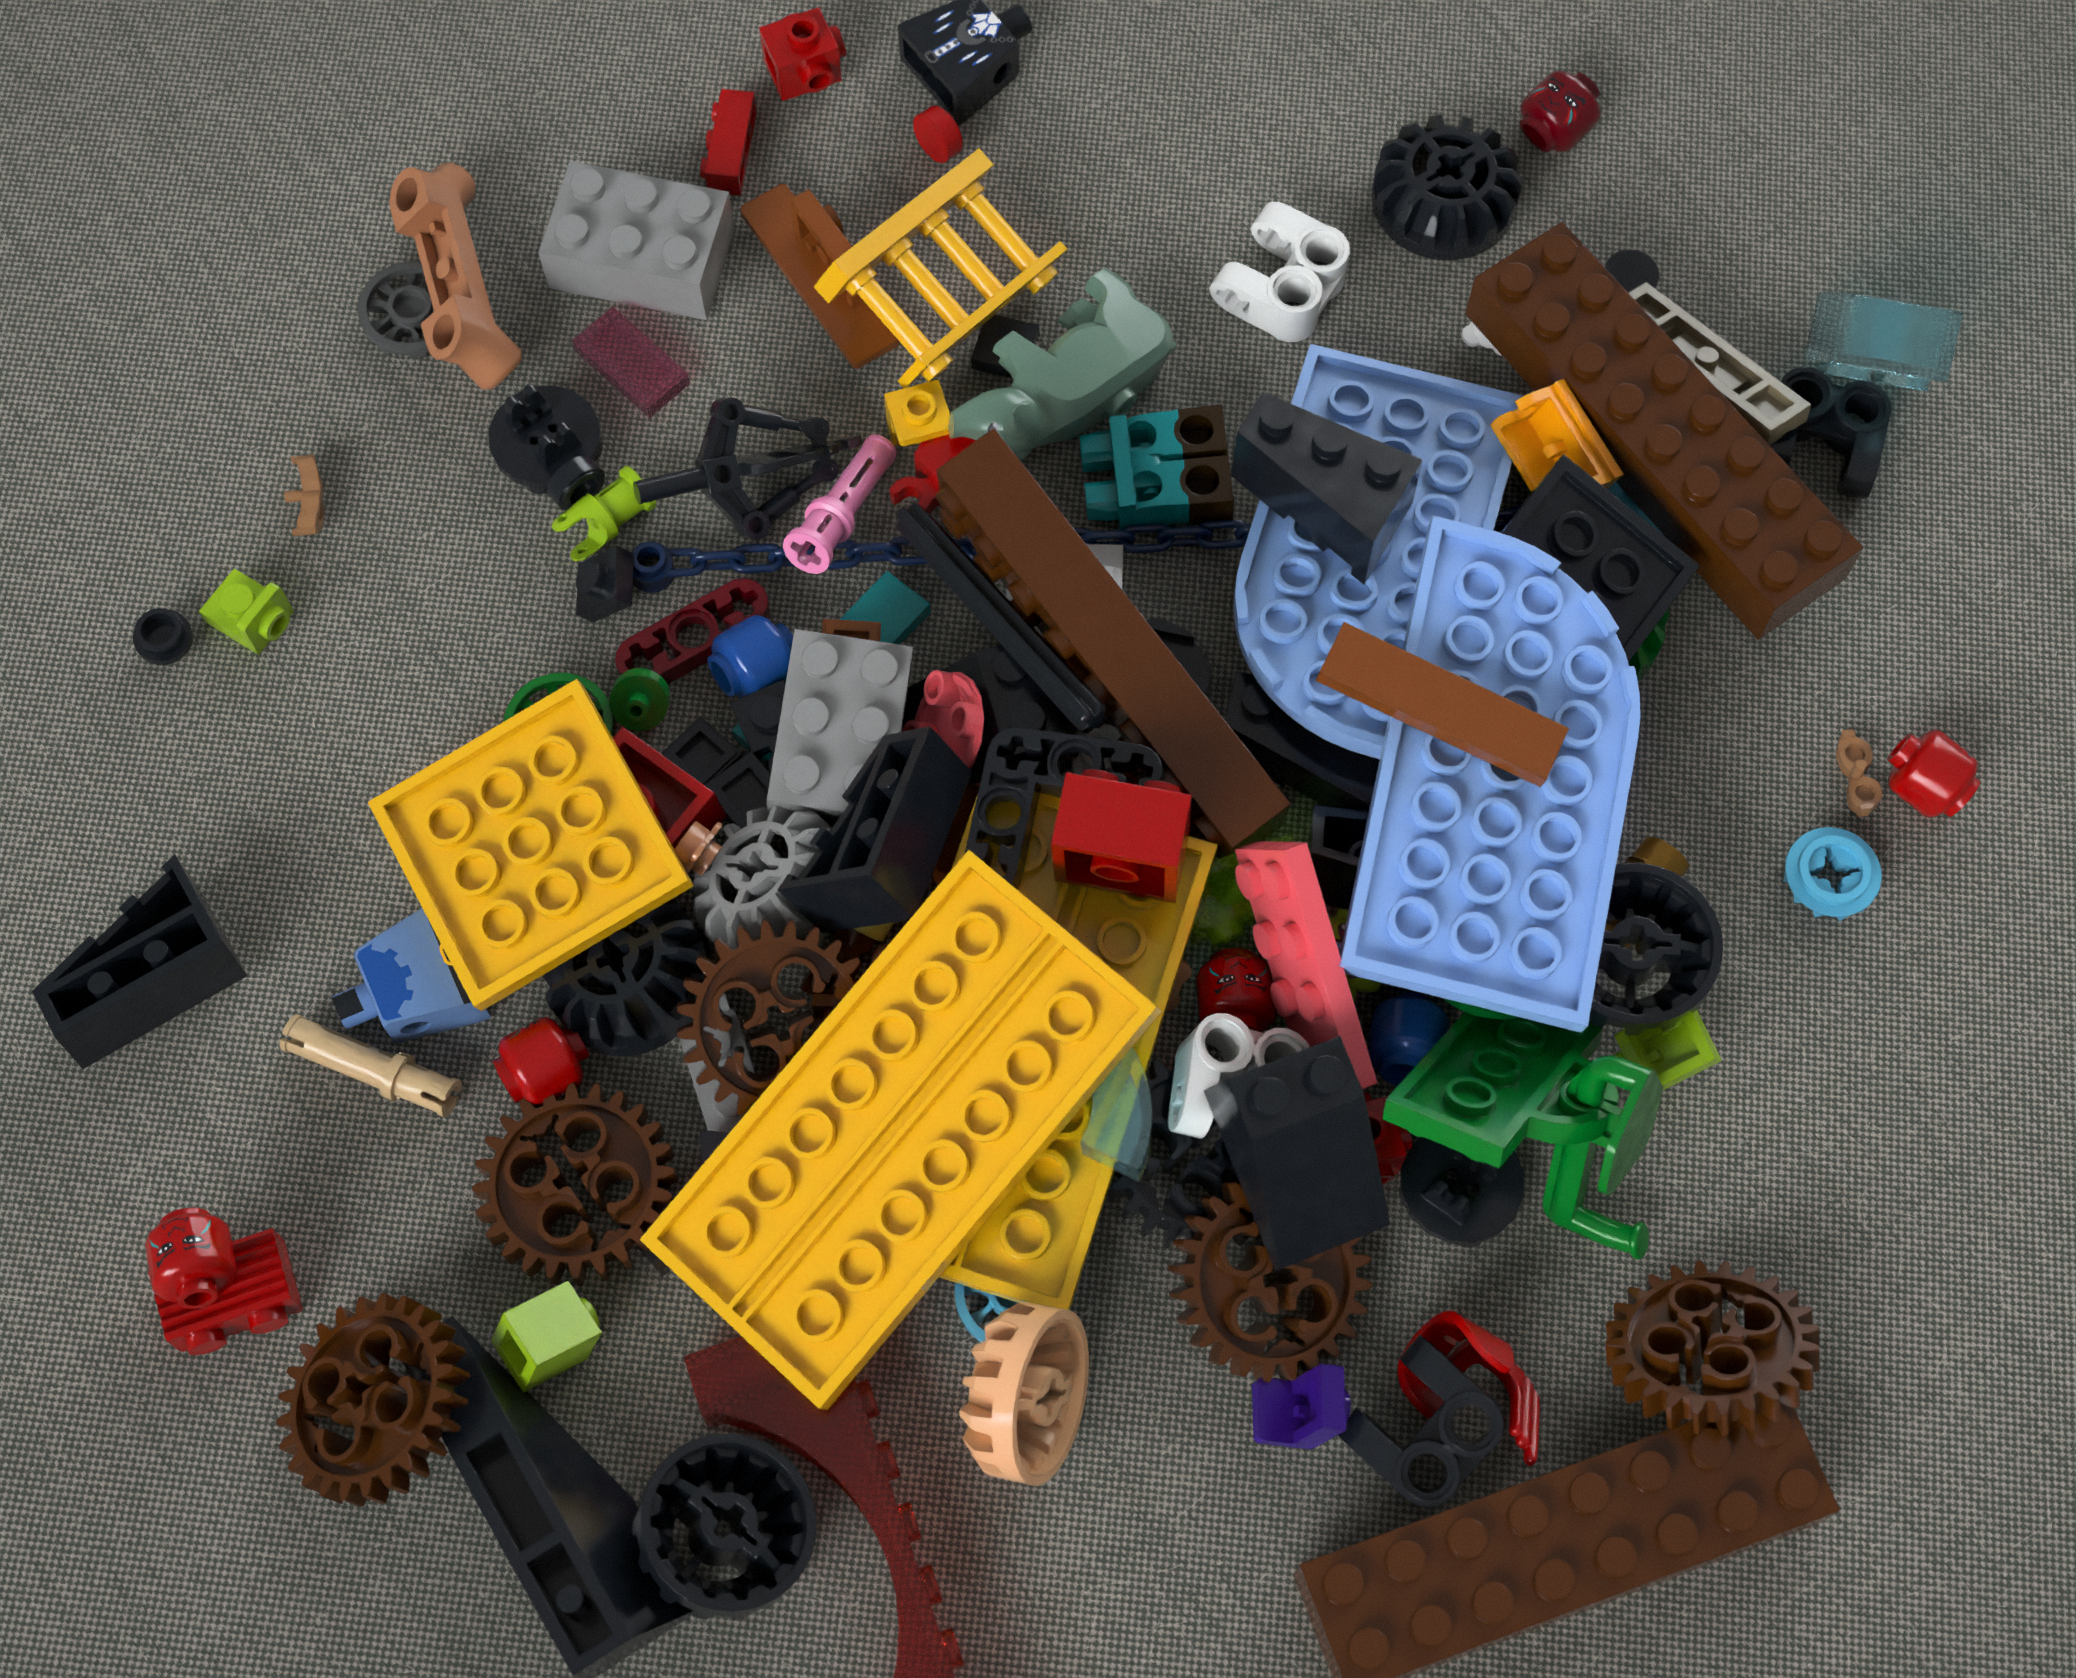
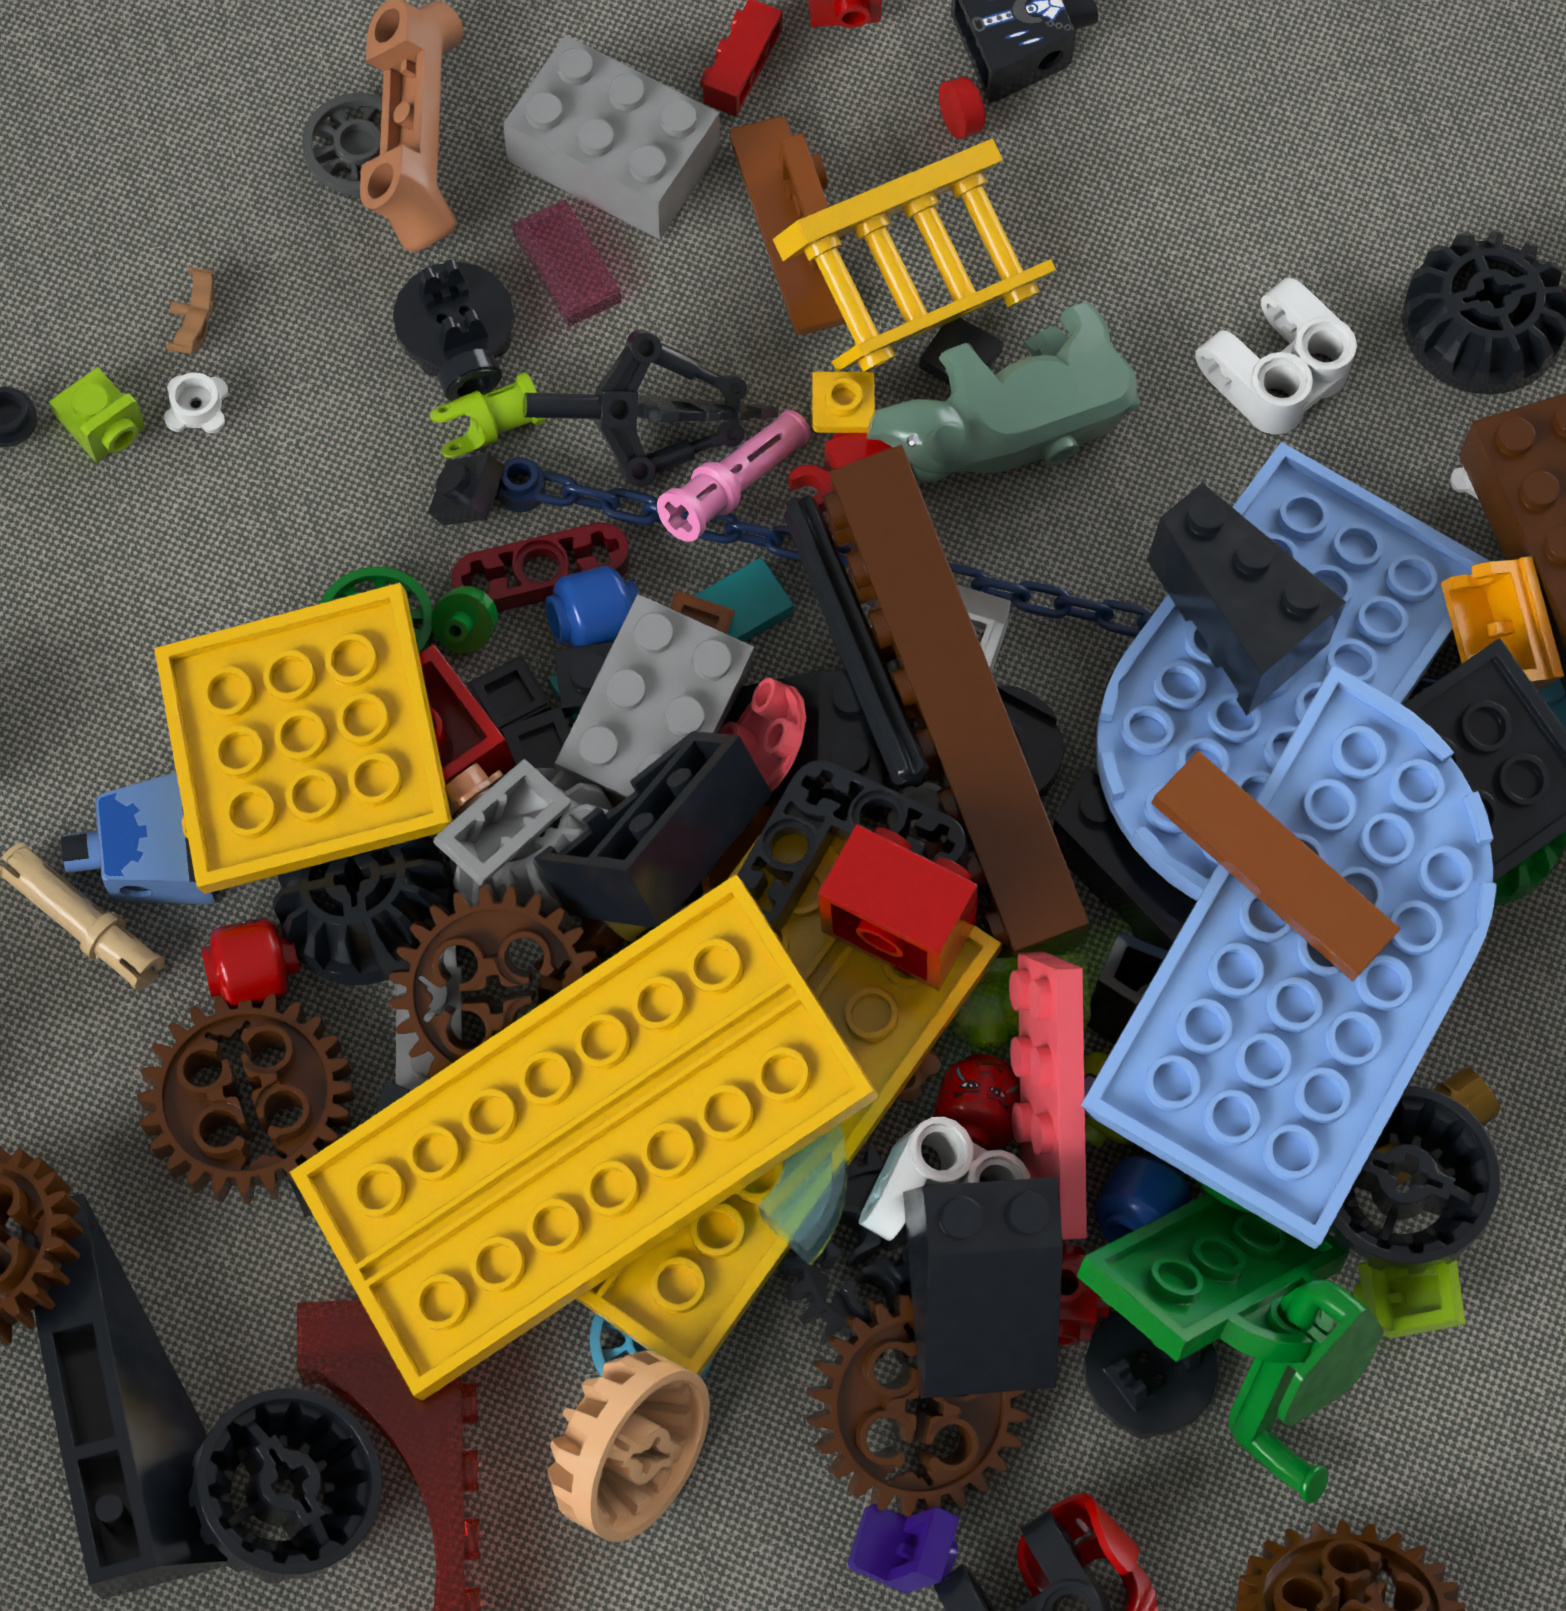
camera: 15 degrees right, 0 degrees up
(330, 562) = (191, 388): none -> white plate
(546, 1335) = (169, 1241): lime brick -> none
(737, 866) = (502, 822): none -> light grey slope
(1163, 468) = (1082, 530): teal hips -> none

